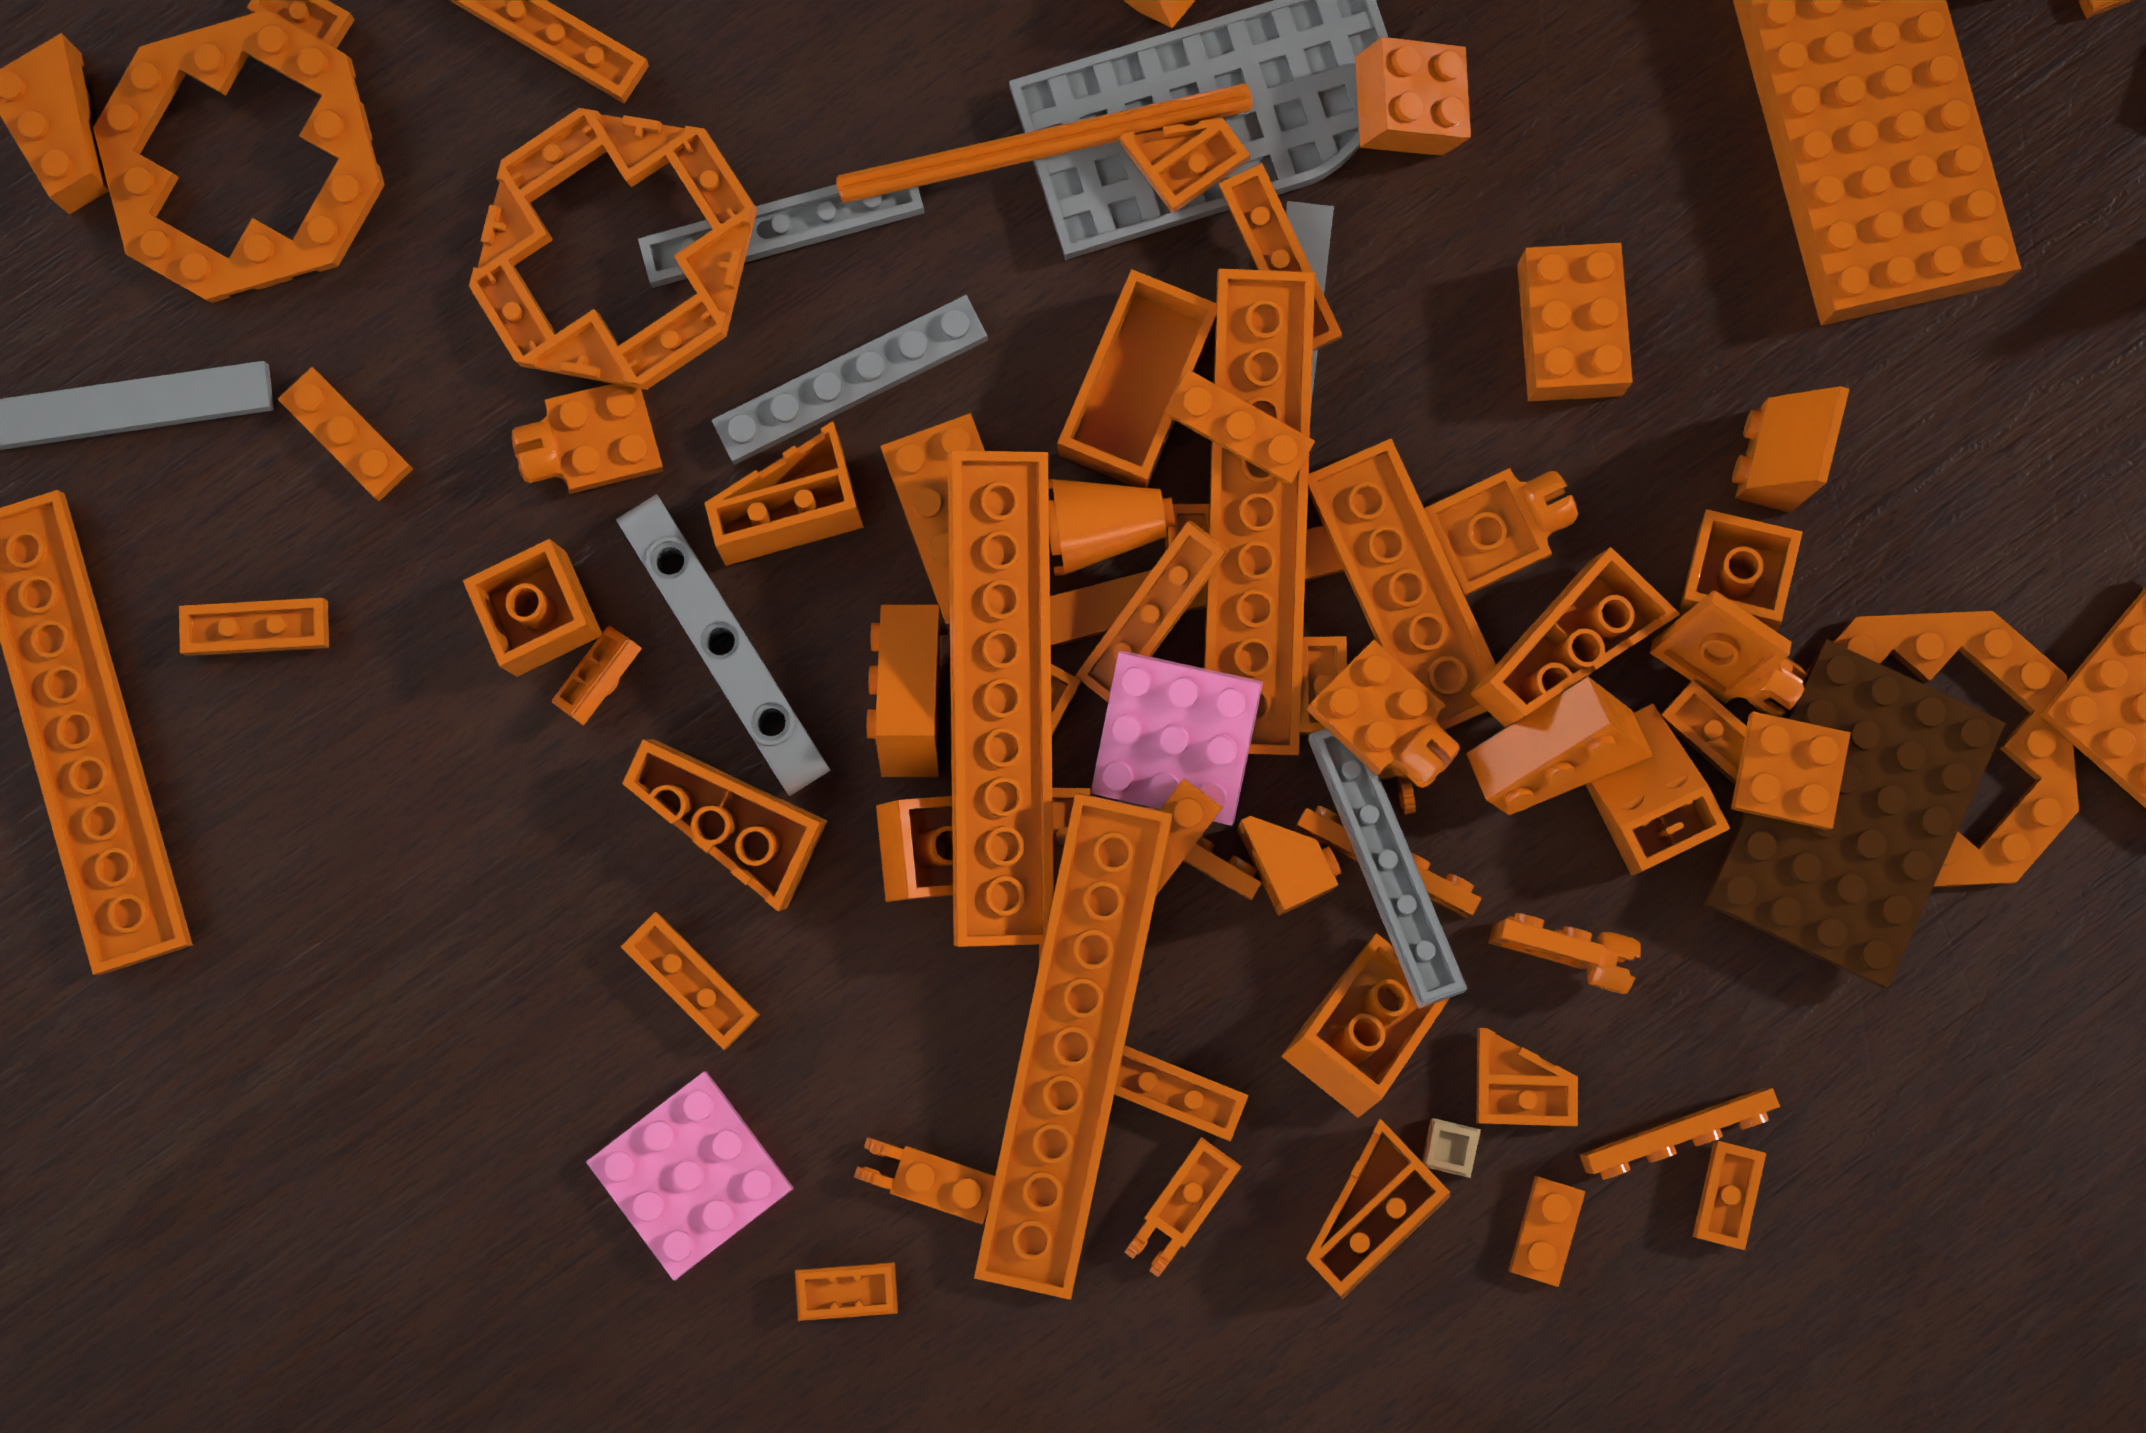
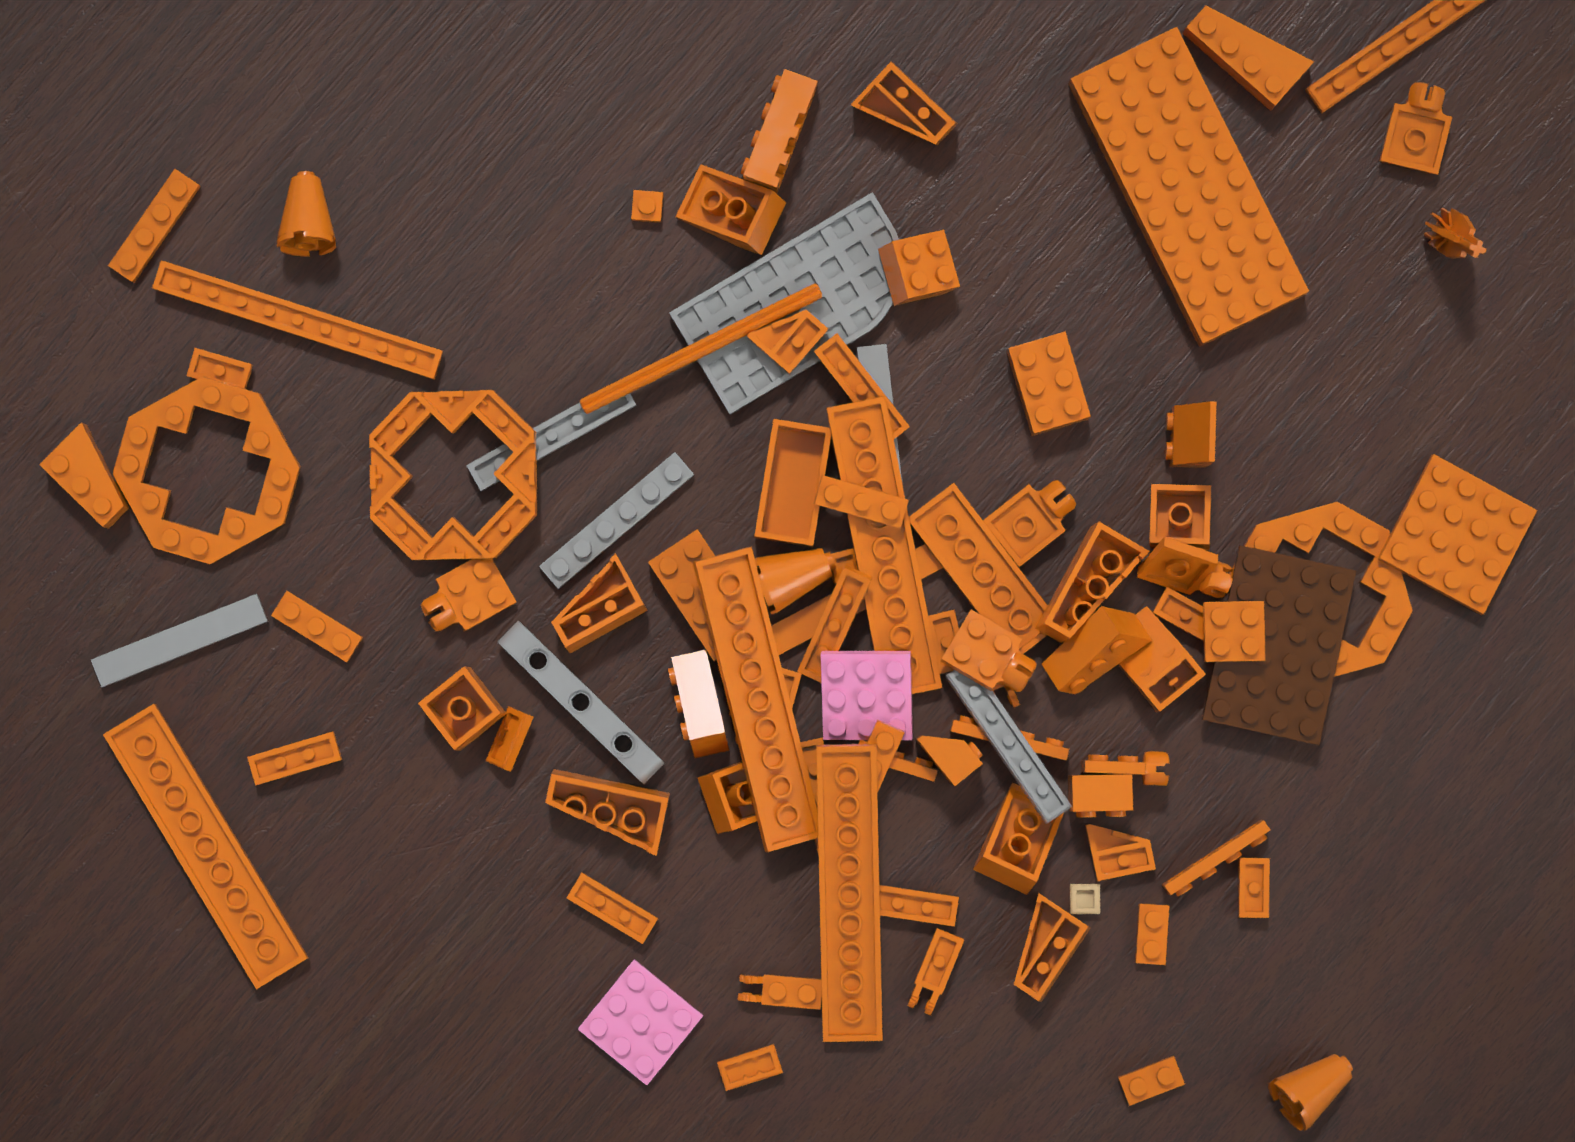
camera: 20 degrees left, 5 degrees up
(1517, 981) = (1100, 793): none -> orange brick

